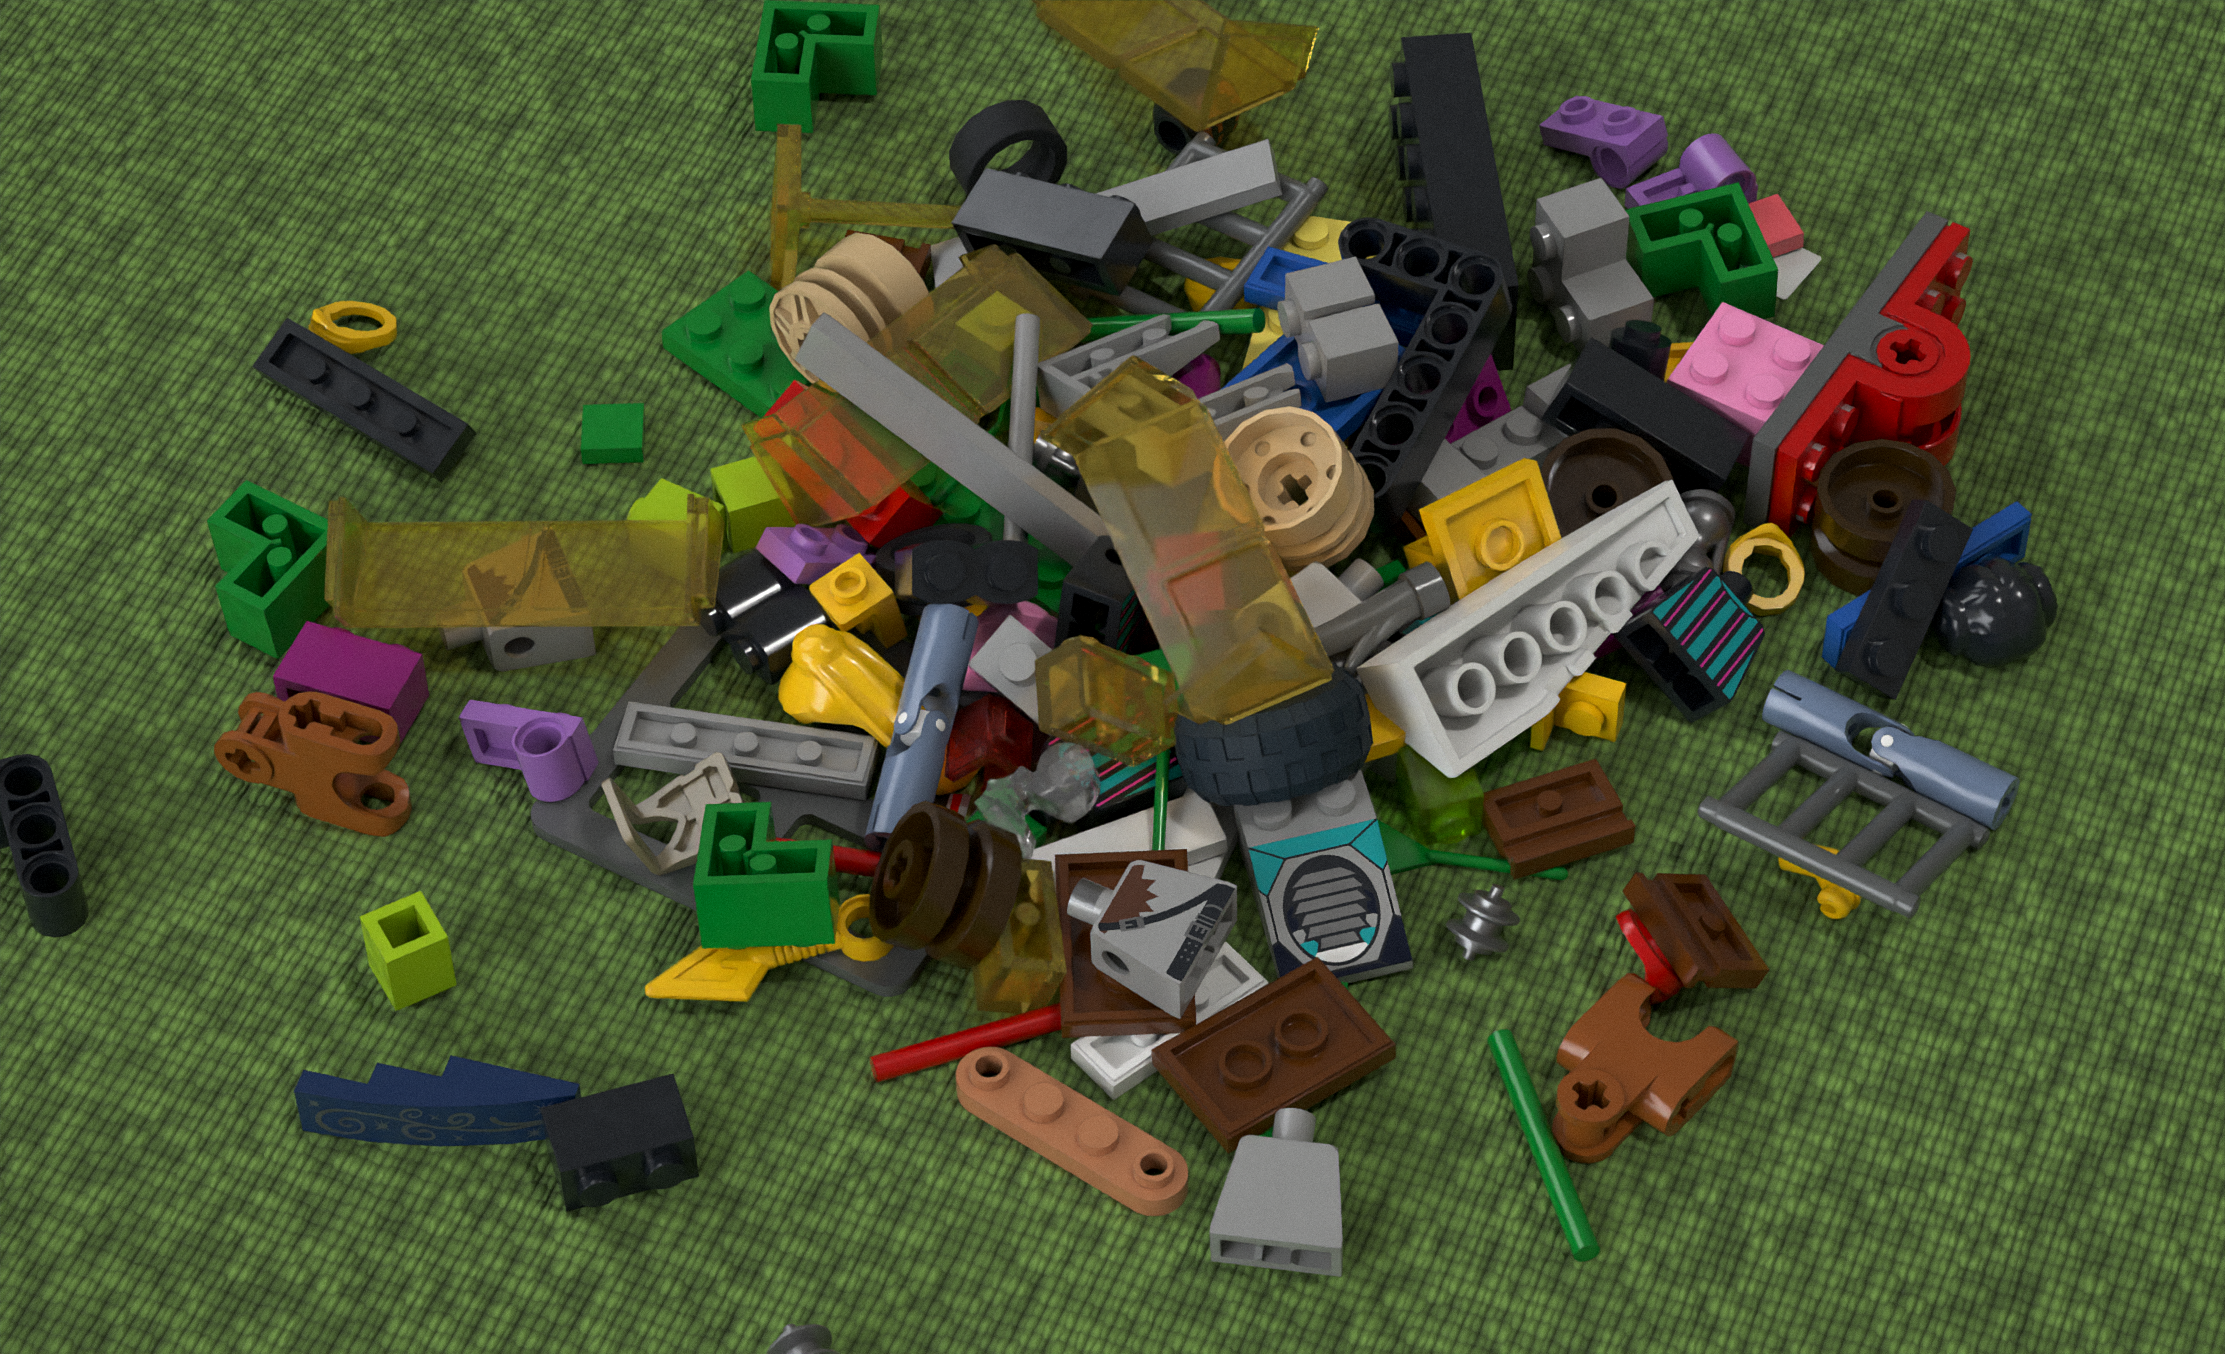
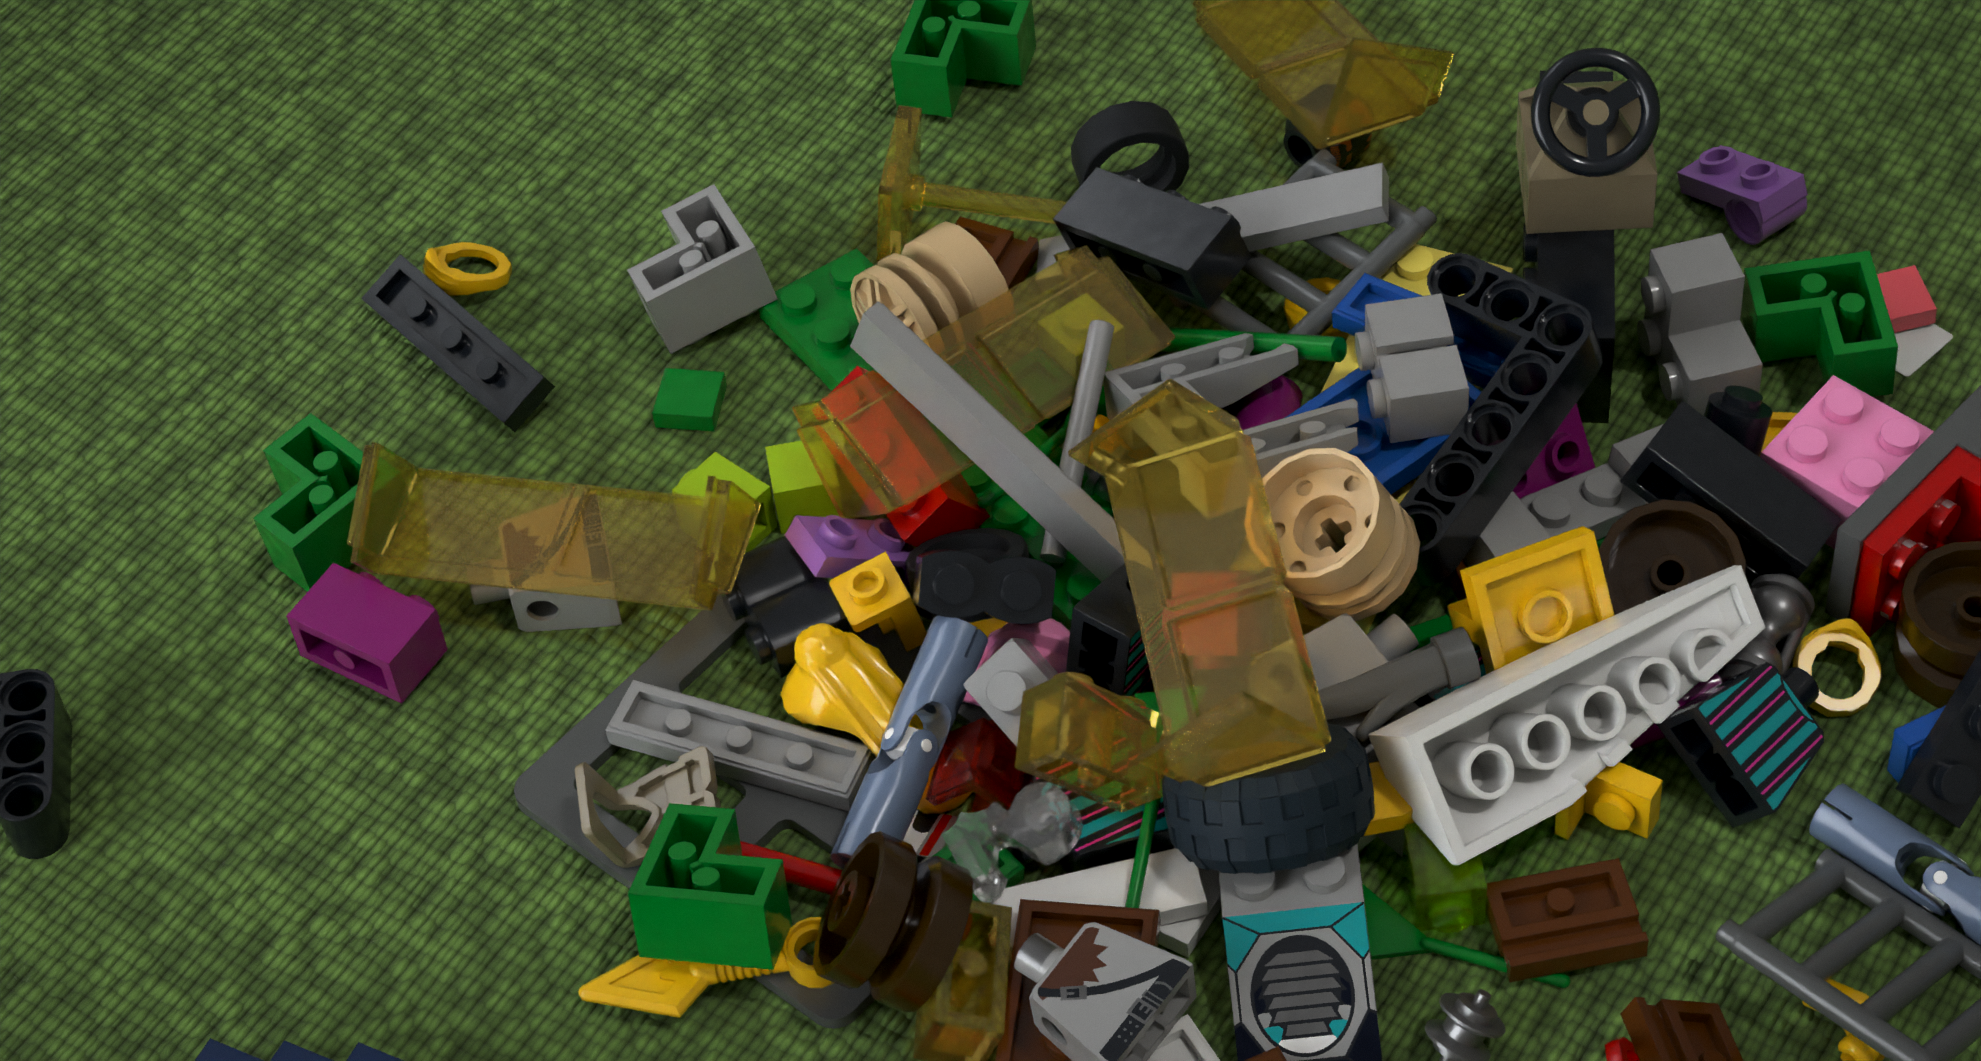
camera: 15 degrees right, 0 degrees up
(315, 753) = (310, 700): dark orange piece -> none
(408, 950) = (348, 921): lime brick -> none
(545, 745) = (537, 719): medium lavender plate -> none
(609, 309) = (705, 277): none -> light grey brick
(1468, 106) = (1588, 147): none -> piece
(1703, 166) = (1839, 229): medium lavender plate -> none

